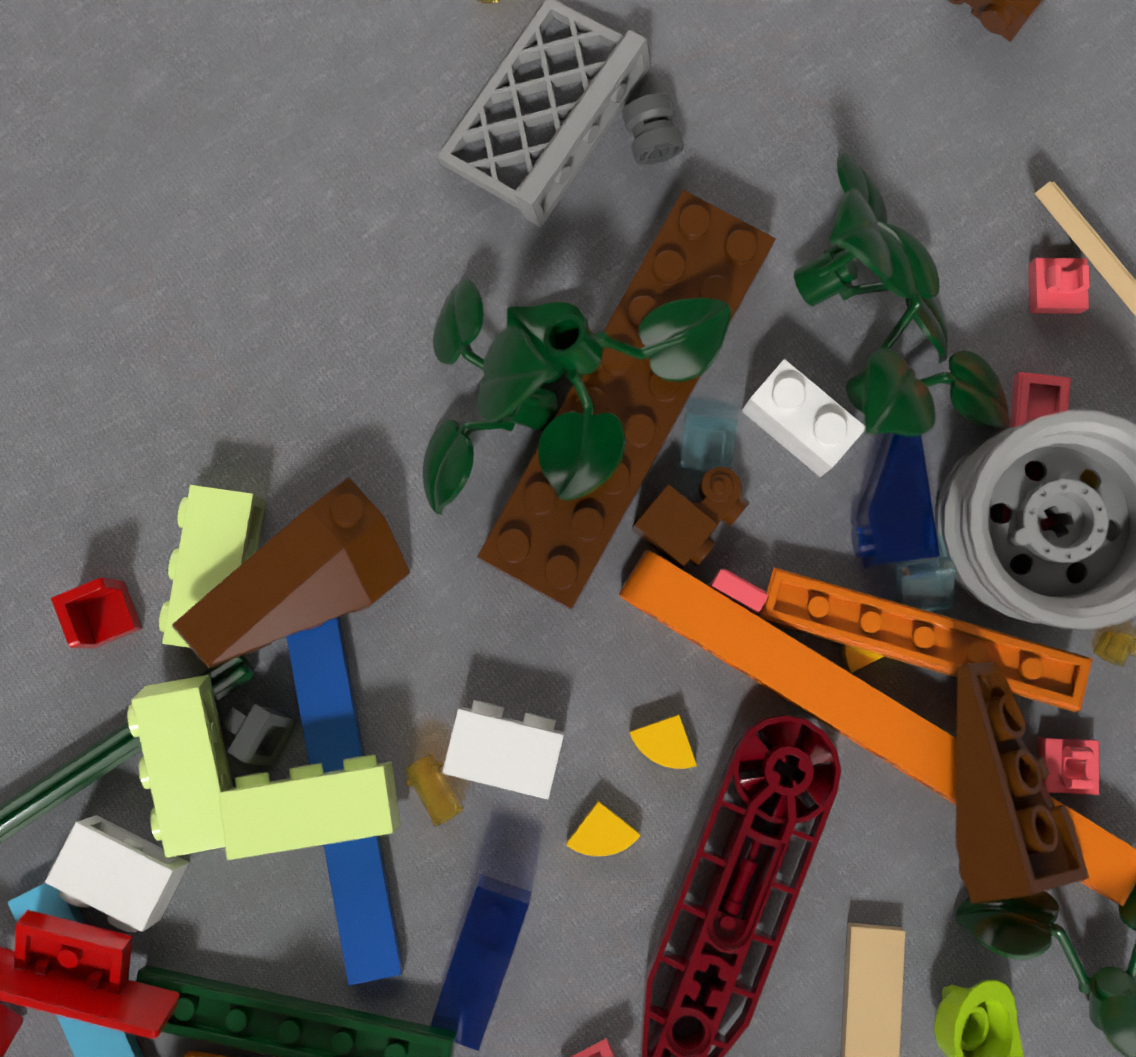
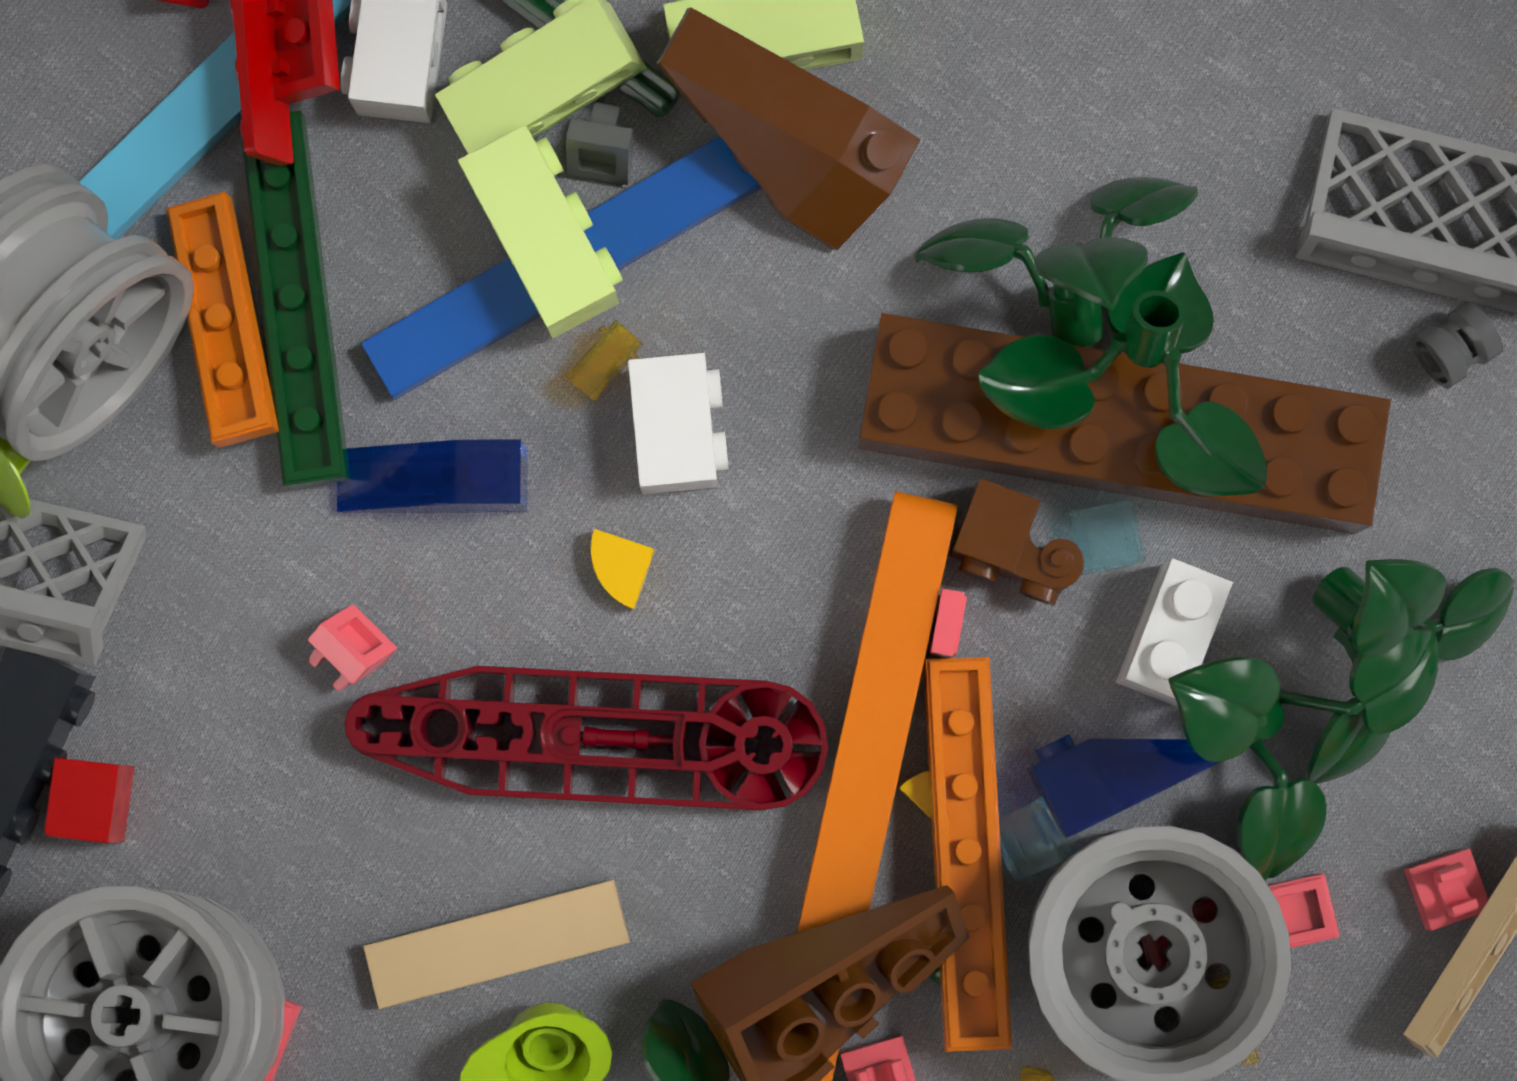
camera: 70 degrees right, 0 degrees up
(665, 743) = (745, 603): yellow tile -> none

